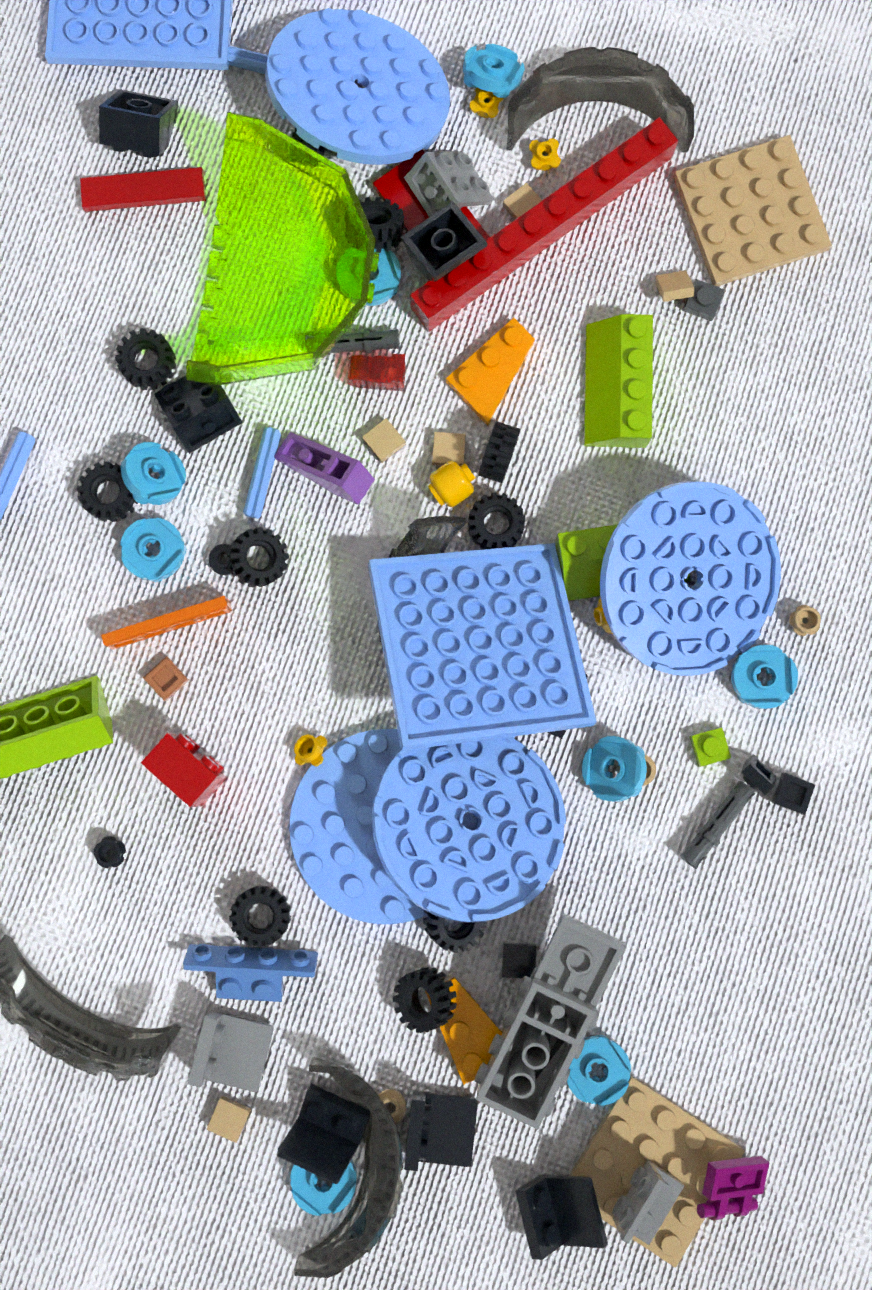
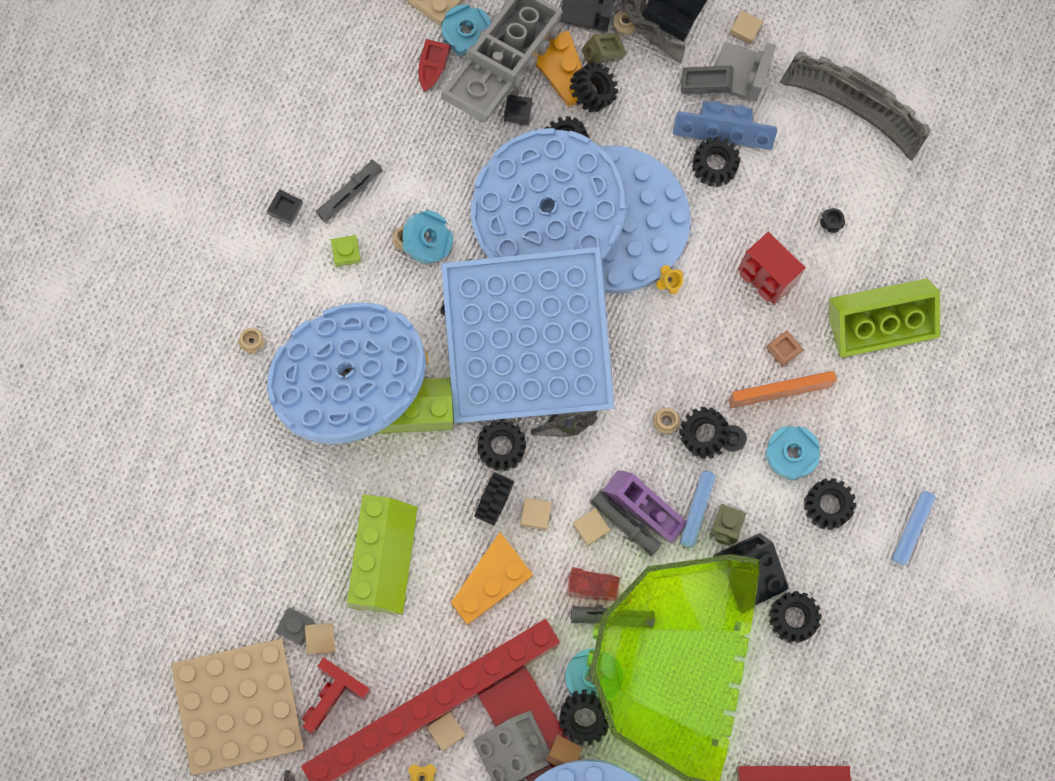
camera: 175 degrees right, 10 degrees down
(143, 486) = (805, 515): medium azure plate -> none
(227, 456) = (727, 525): none -> olive bracket
(277, 1031) = (707, 79): none -> dark grey tile
(300, 564) = (666, 413): none -> tan plate
(334, 438) = (634, 530): none -> dark grey pin
(395, 183) = (563, 751): none -> nougat tile
(415, 1061) = (603, 48): none -> olive bracket
(442, 242) = (525, 680): black slope -> none
(451, 483) = (536, 480): yellow head -> none
(635, 1016) = (432, 62): none -> red plate
(647, 242) = (331, 693): none -> red bracket
(751, 690) = (284, 287): medium azure plate -> none
(758, 775) = (311, 223): black plate -> none

